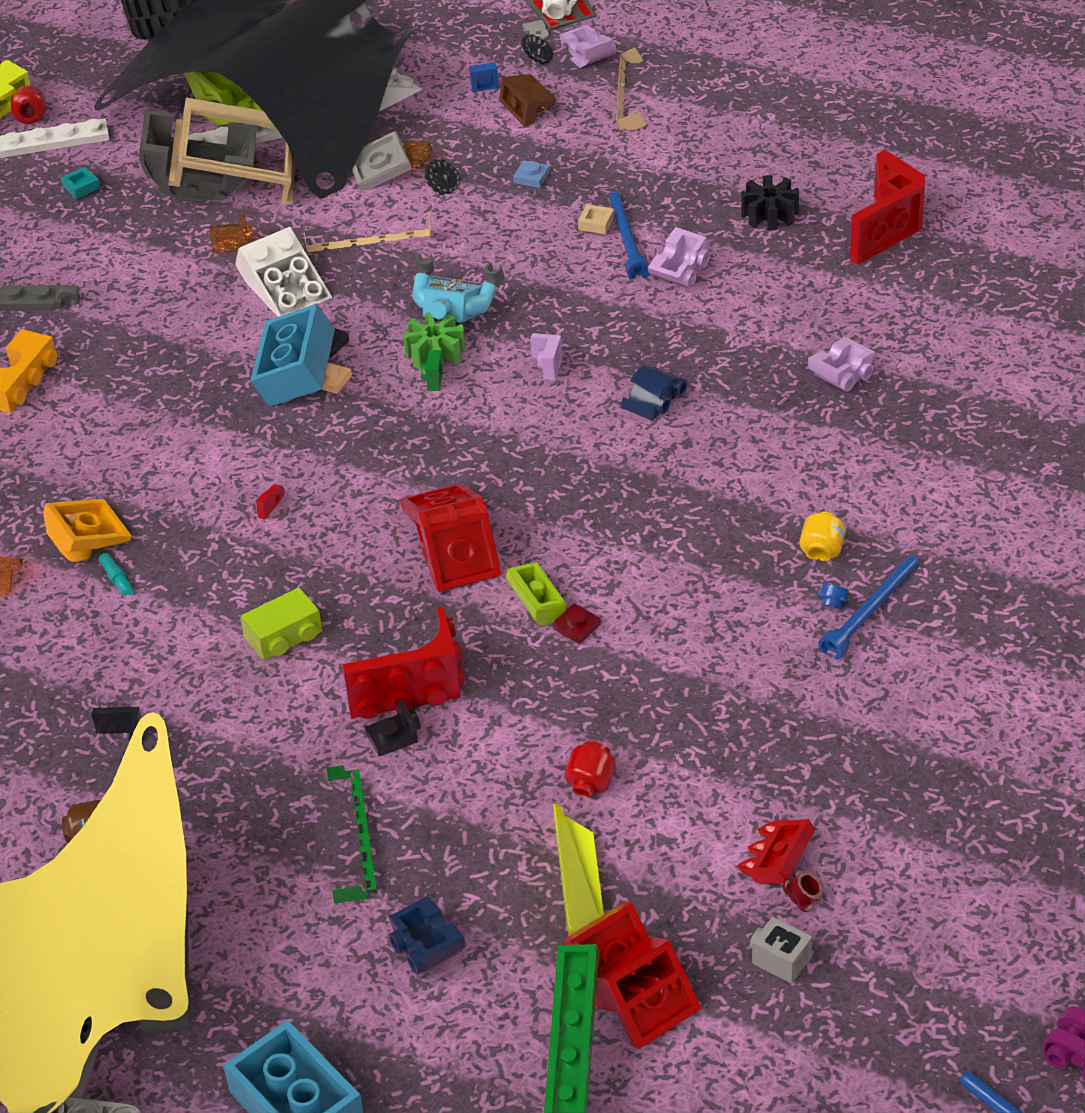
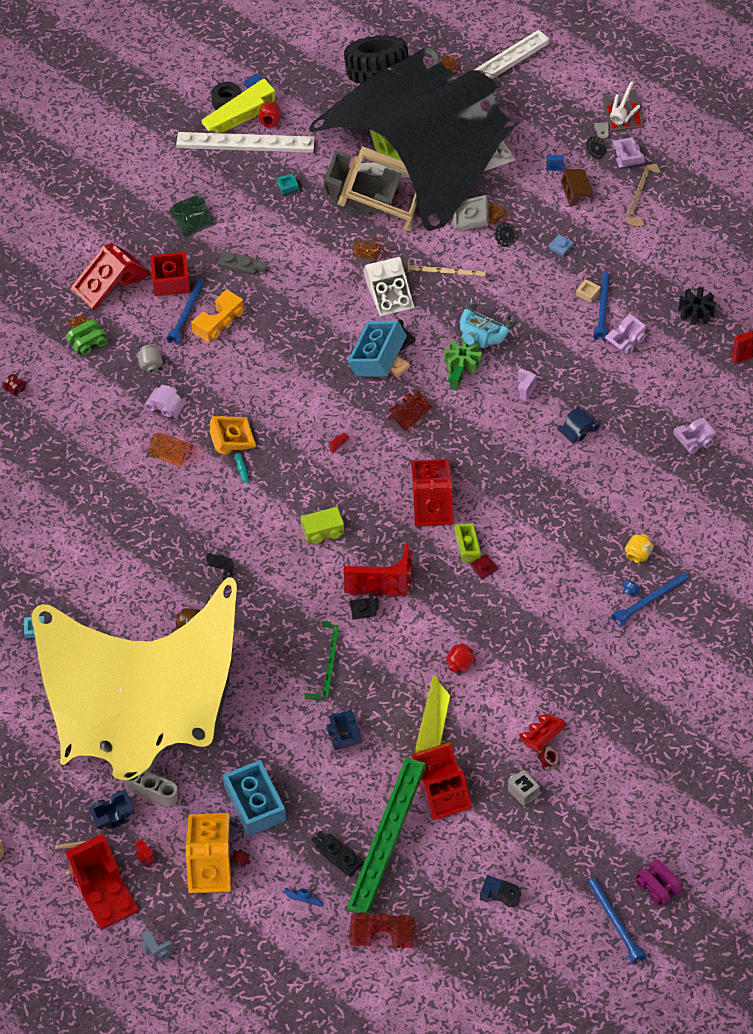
camera: 15 degrees right, 10 degrees up
(374, 430) = (410, 411): none -> clear red bracket

